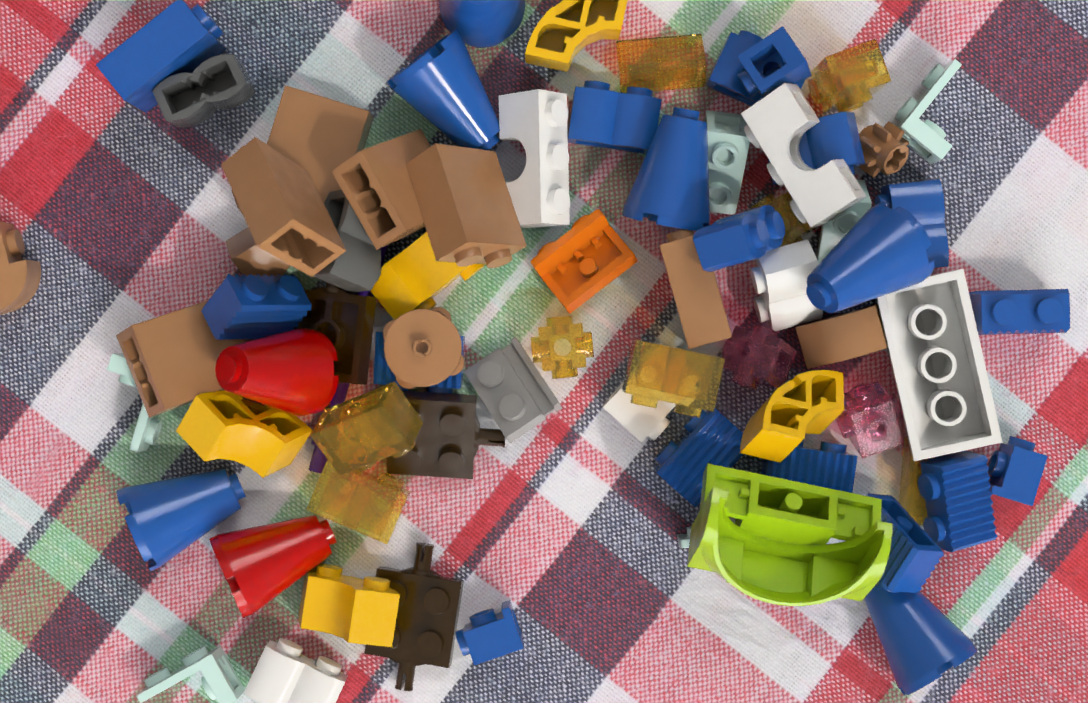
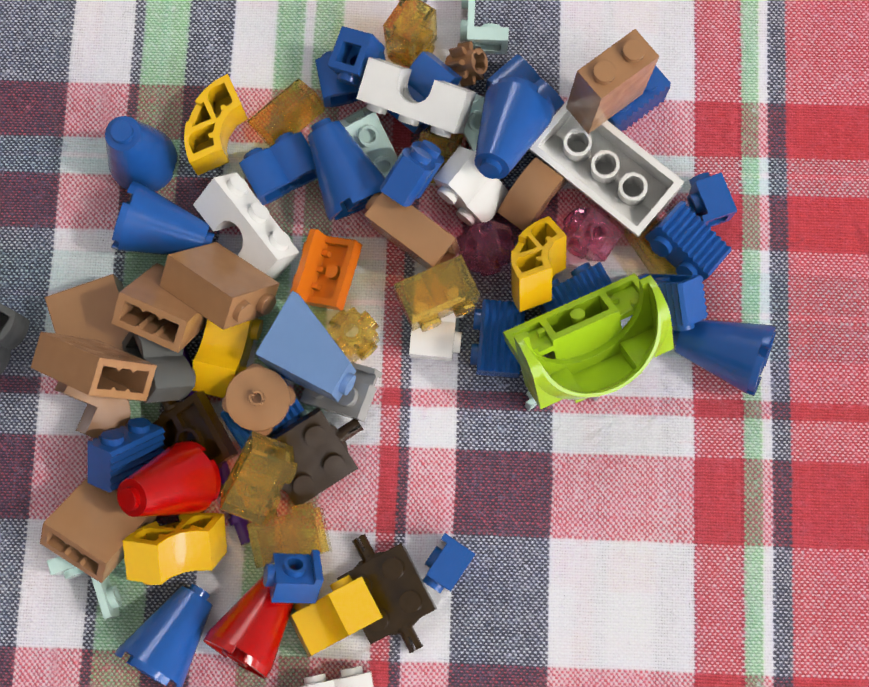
camera: 35 degrees left, 10 degrees down
(336, 547) = (294, 577): none -> blue brick
(504, 338) = (305, 352): none -> medium blue slope
(1009, 297) = (611, 81): none -> medium nougat brick

